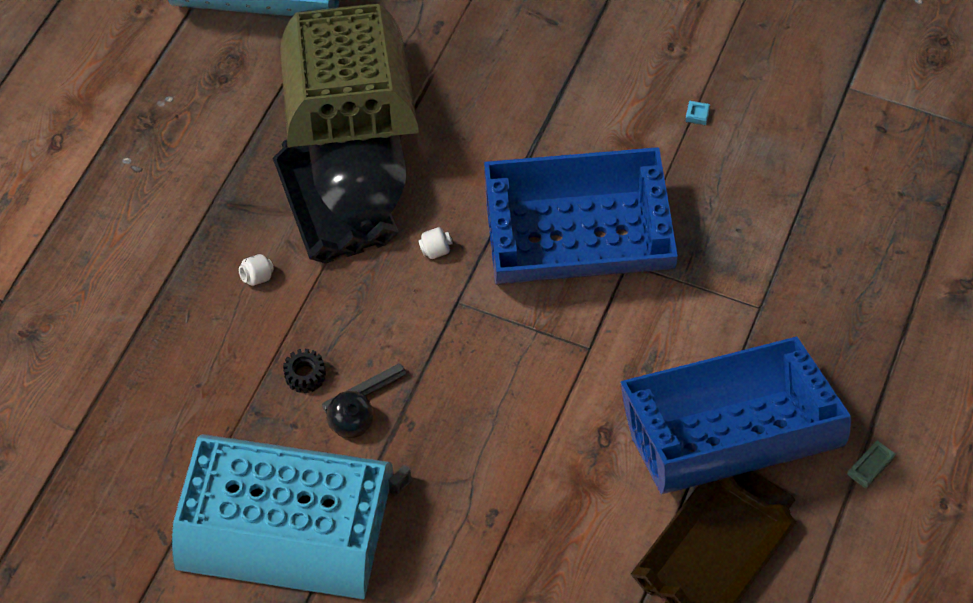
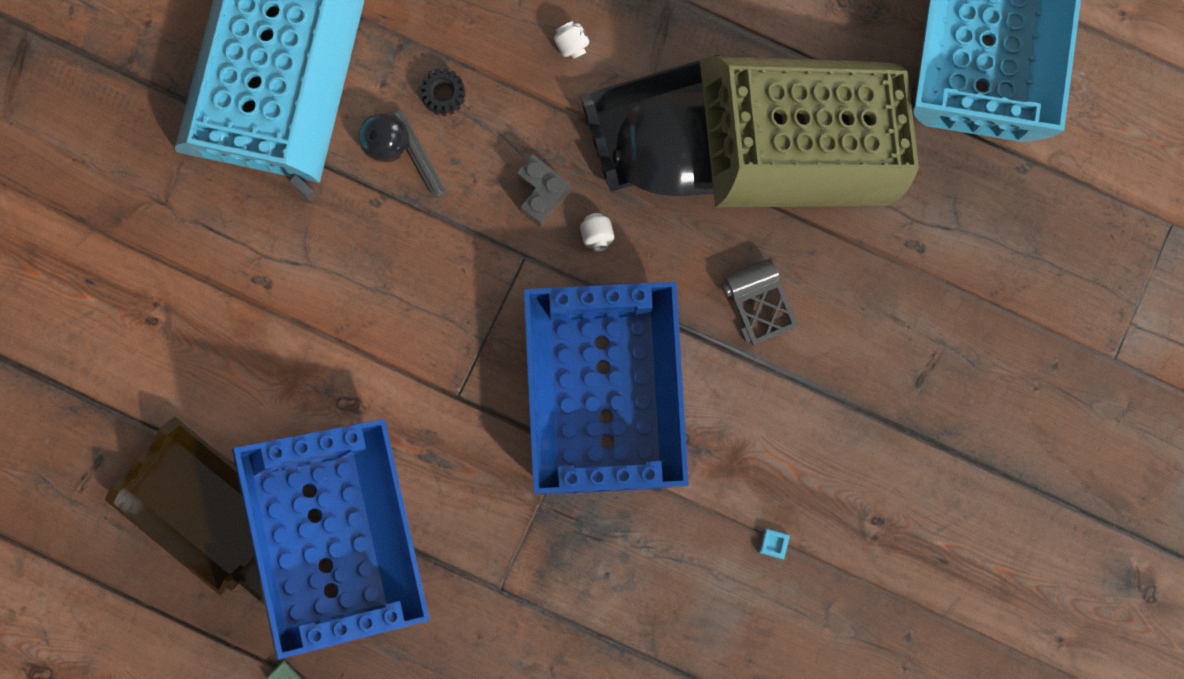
camera: 85 degrees right, 25 degrees up
(398, 281) = (547, 187): none -> dark grey brick
(478, 131) = (753, 282): none -> dark grey piece

